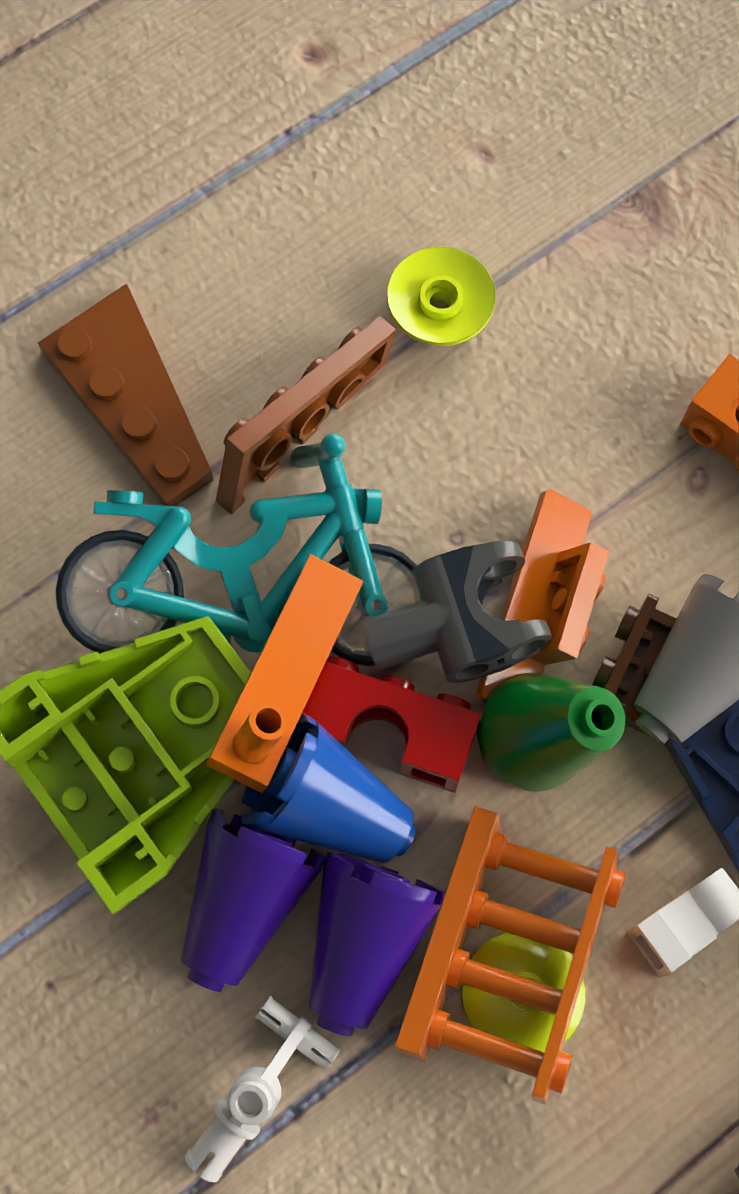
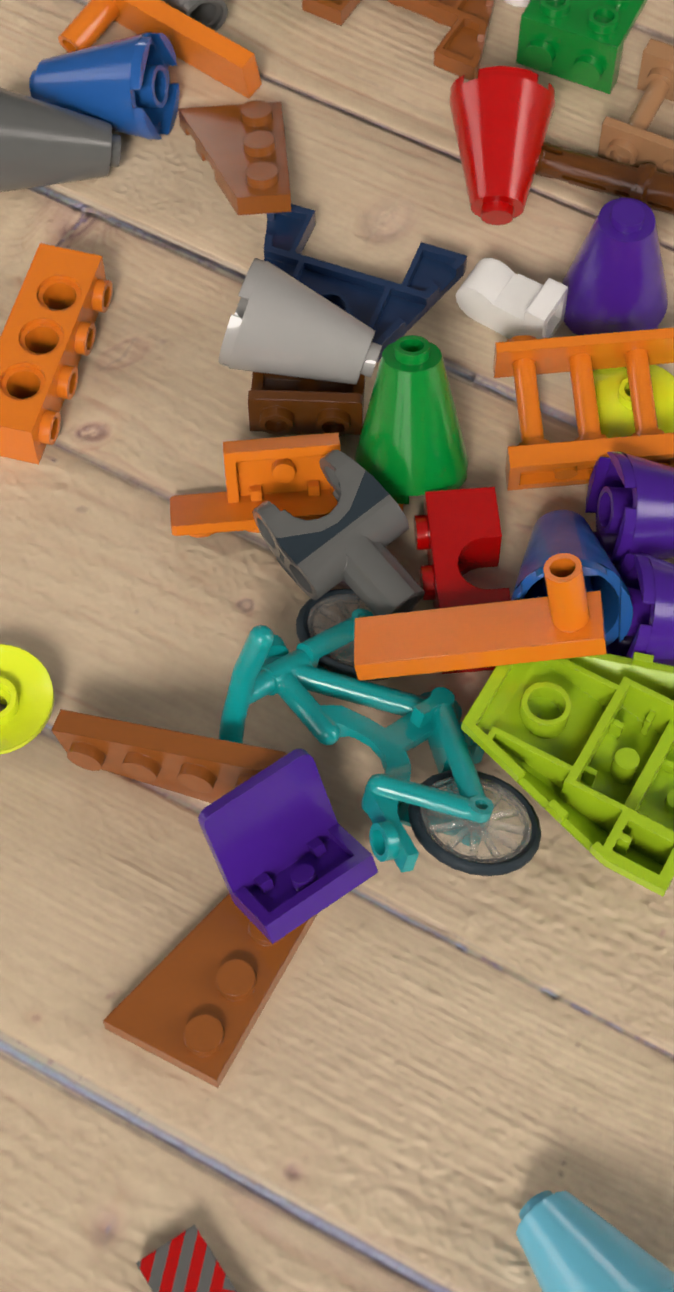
camera: 110 degrees left, 10 degrees down
(170, 439) = (283, 846): none -> dark purple bracket
(663, 1041) = (617, 273): none -> dark purple cone

